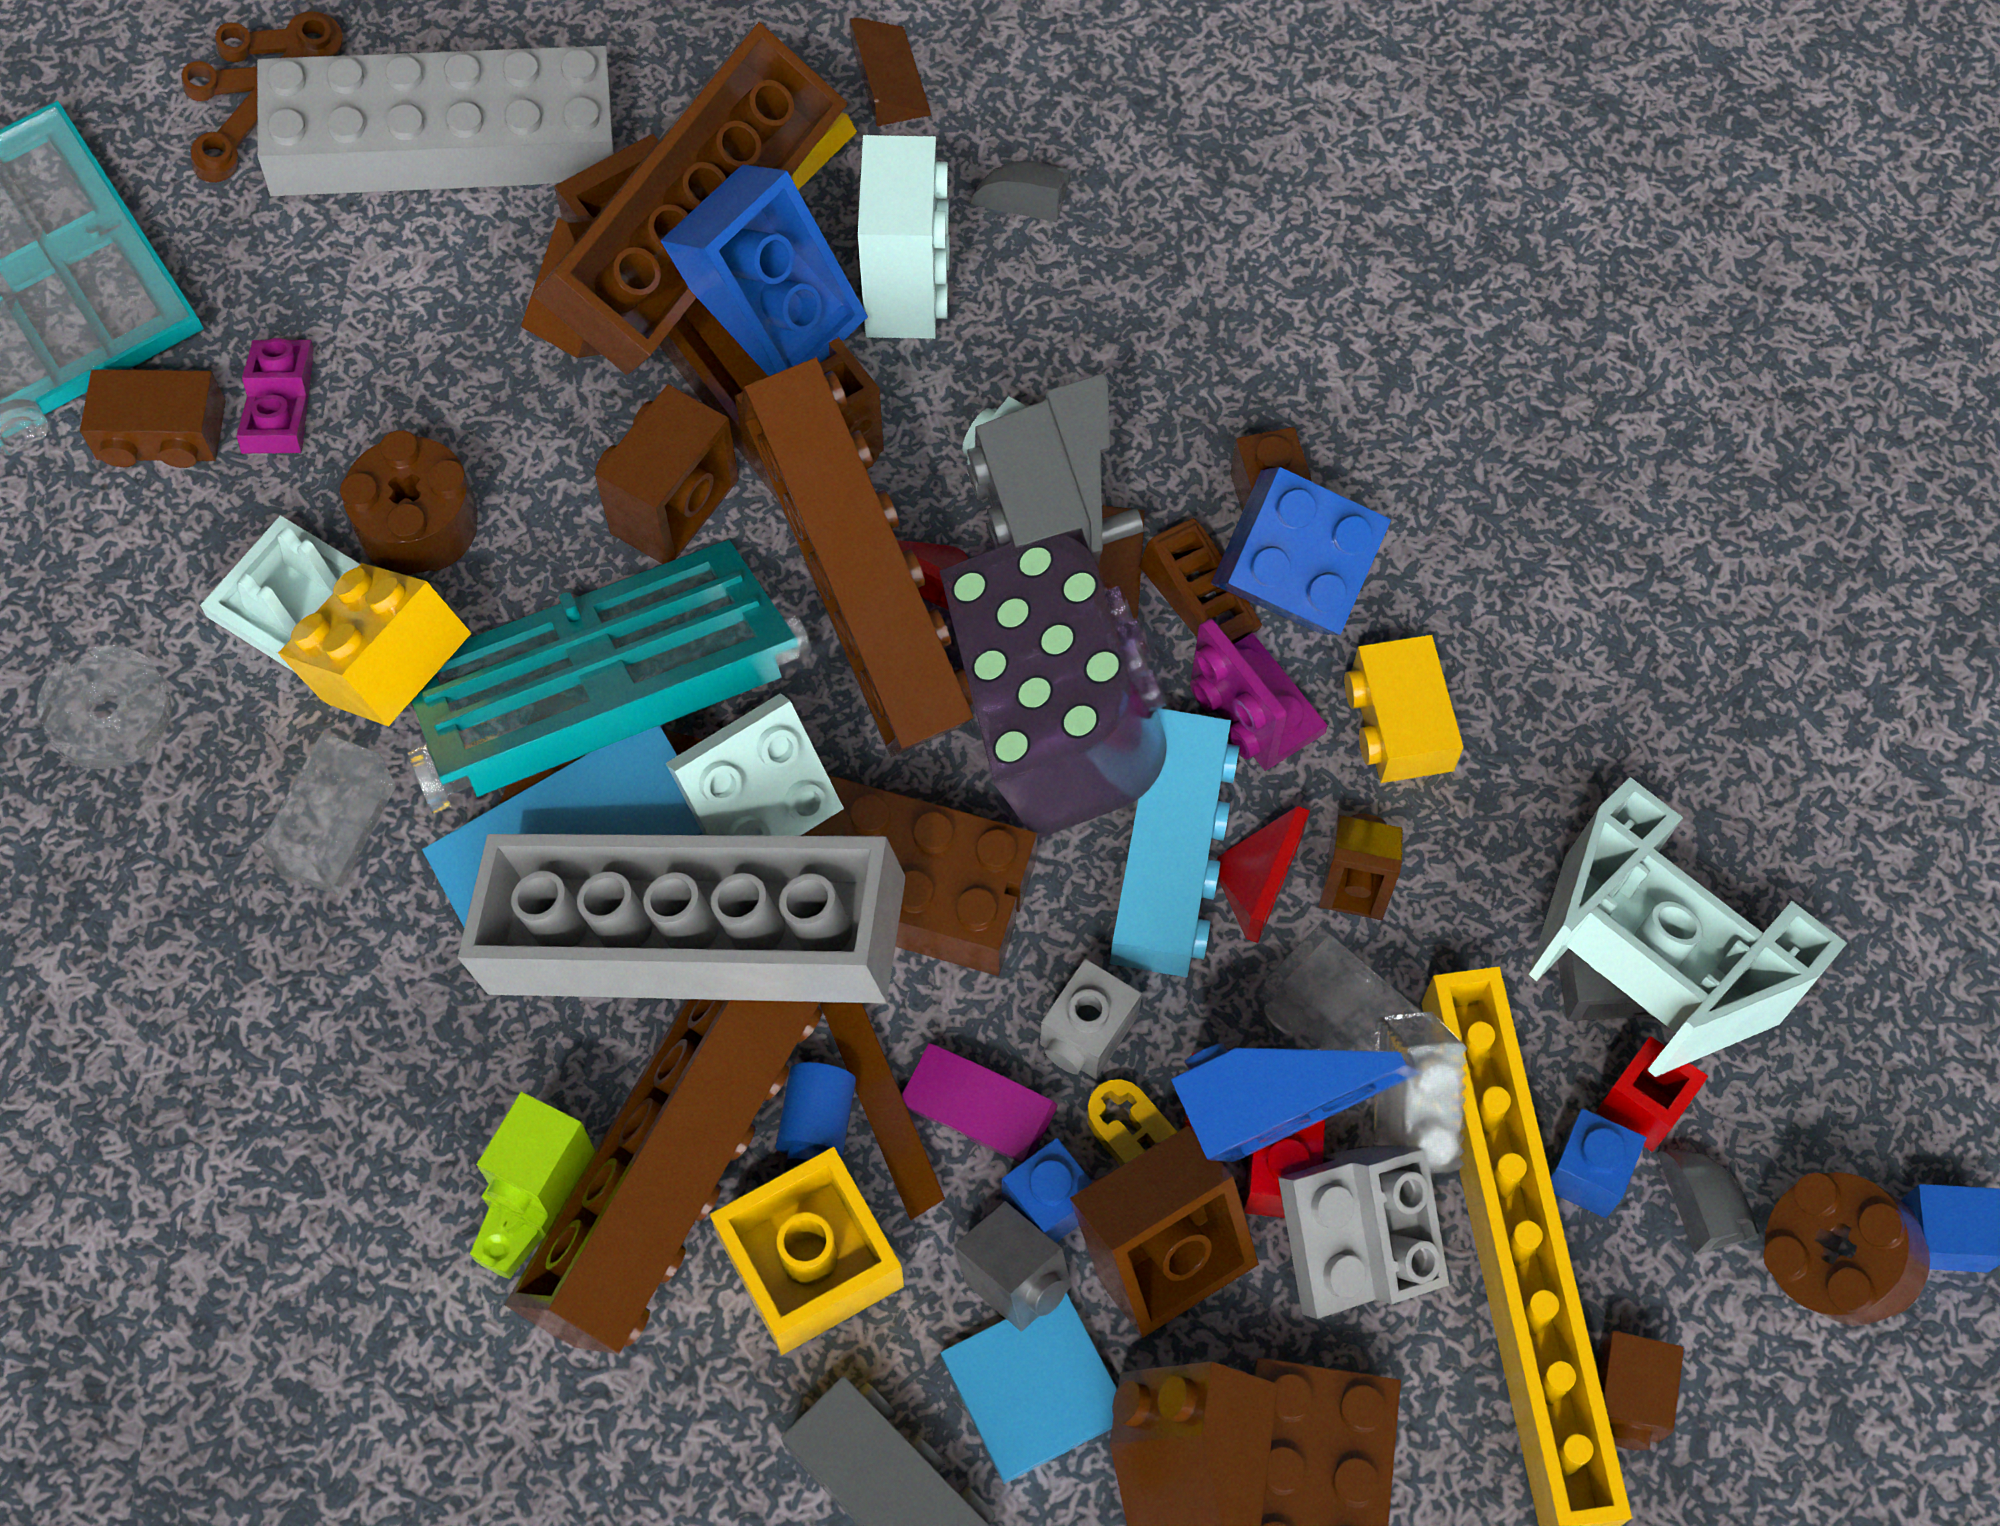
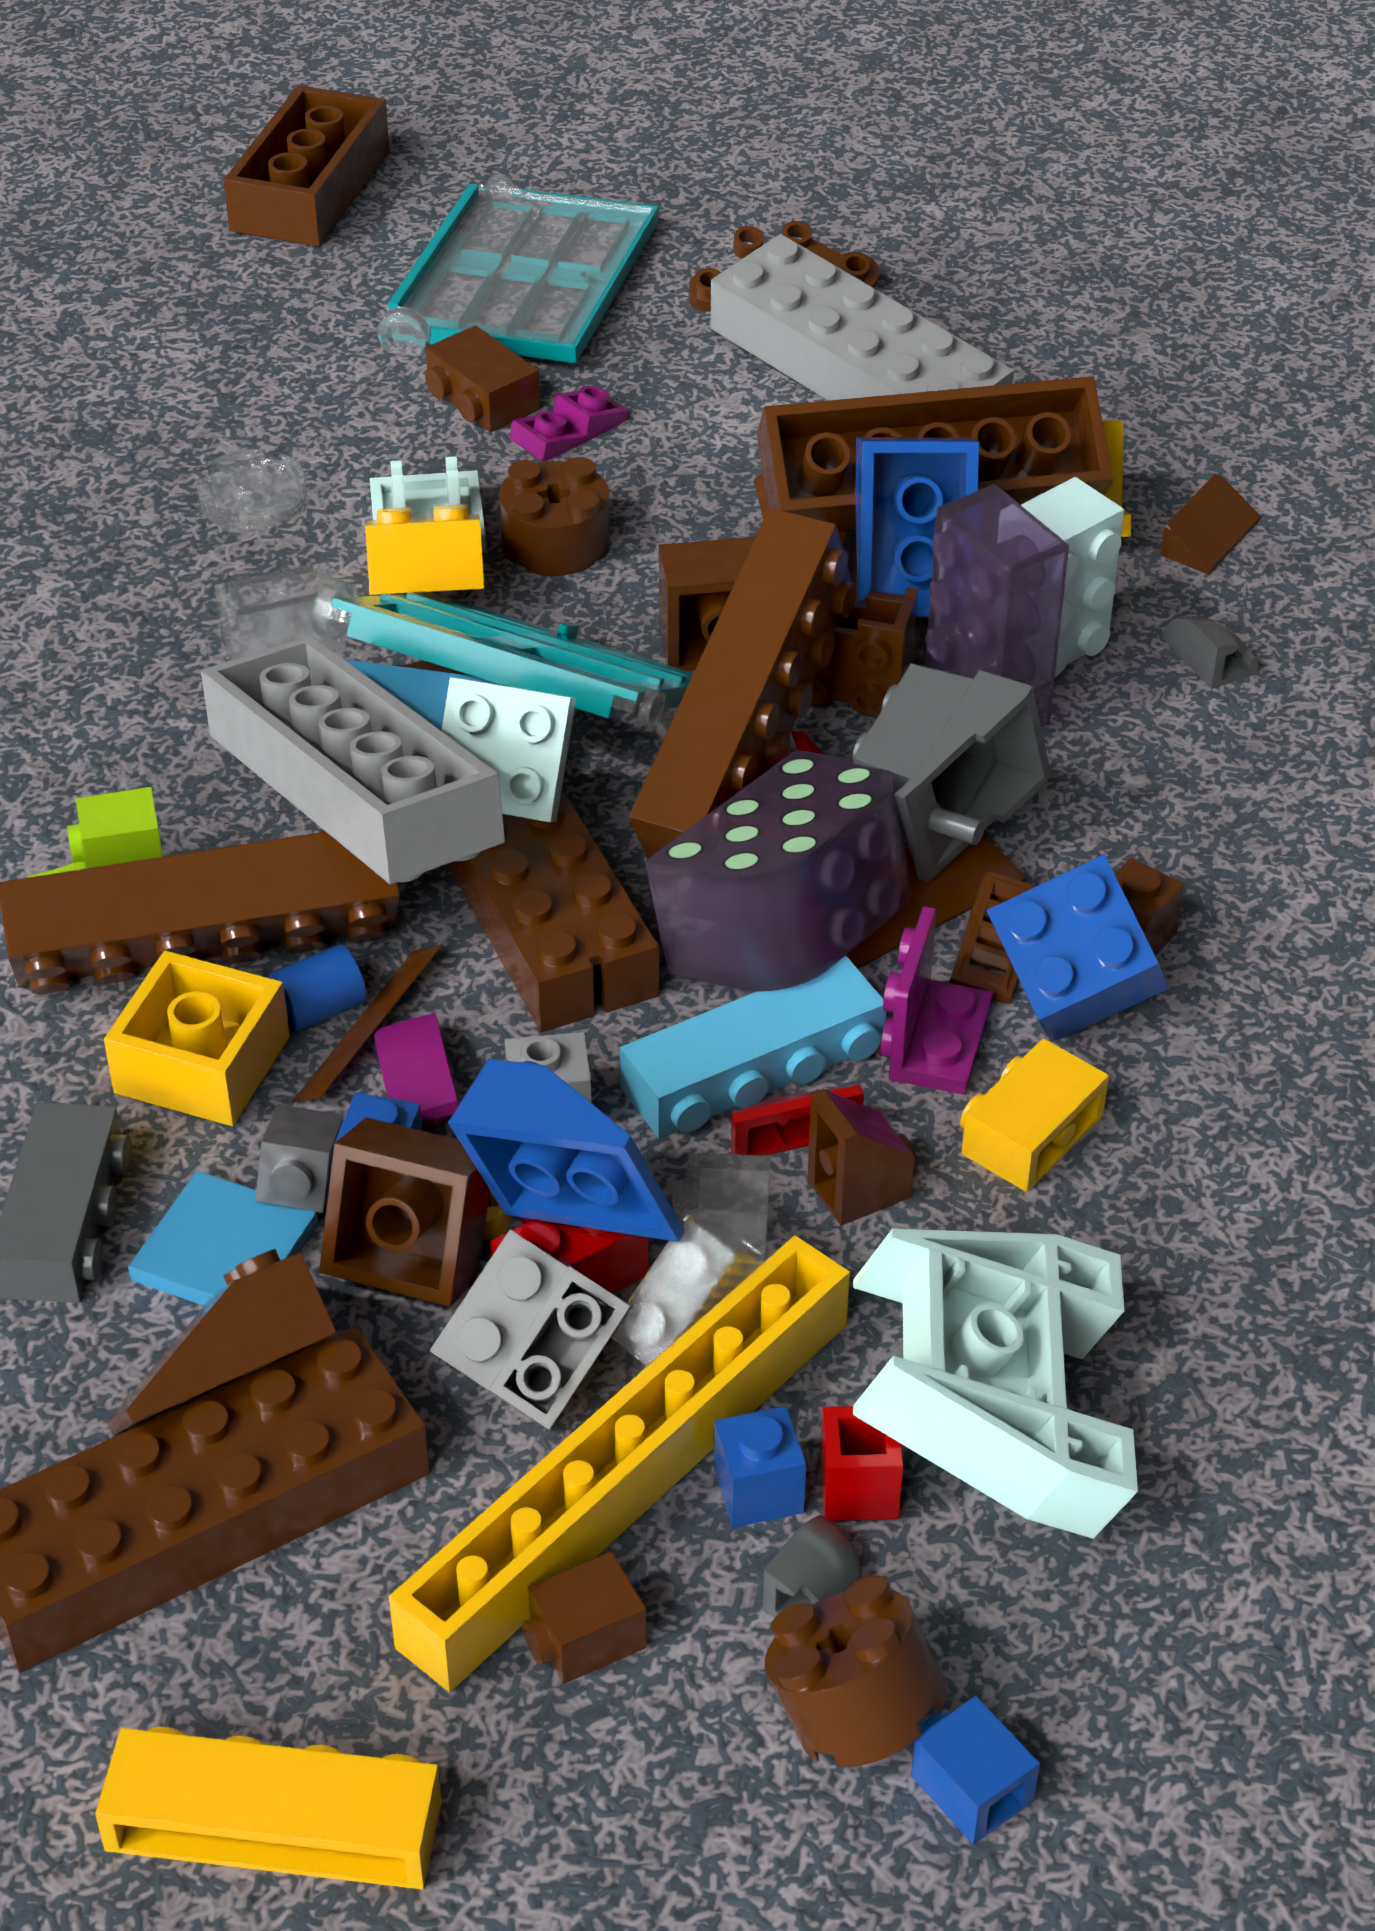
camera: 50 degrees right, 20 degrees down
(929, 312) = (996, 593): none -> clear purple brick

